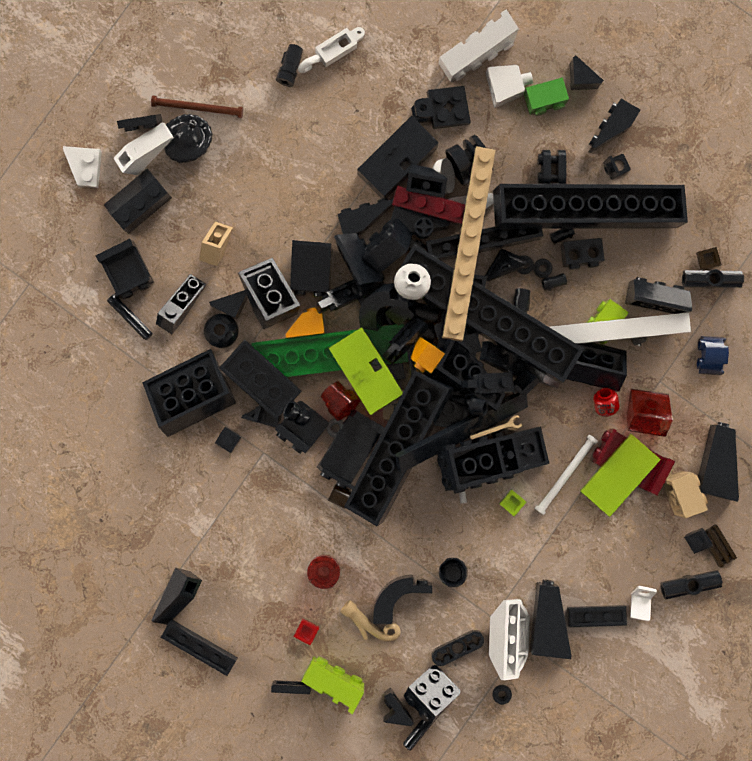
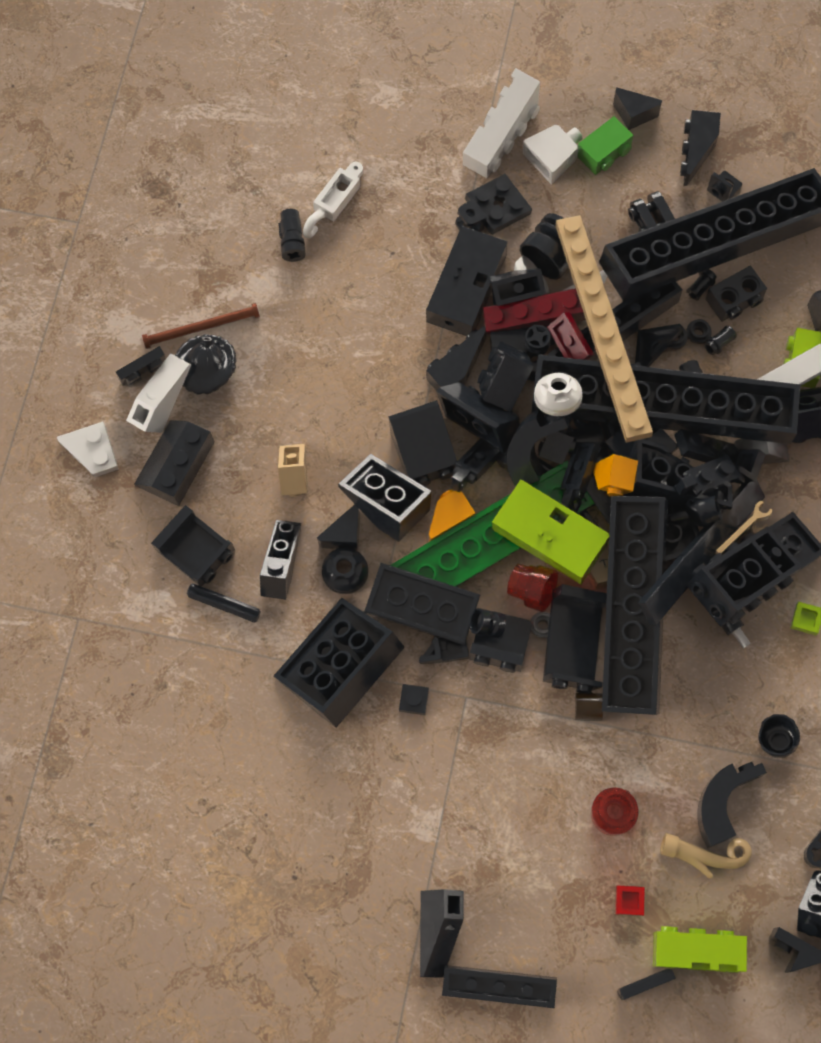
camera: 15 degrees left, 15 degrees down
(444, 240) = (569, 338): none -> dark red plate

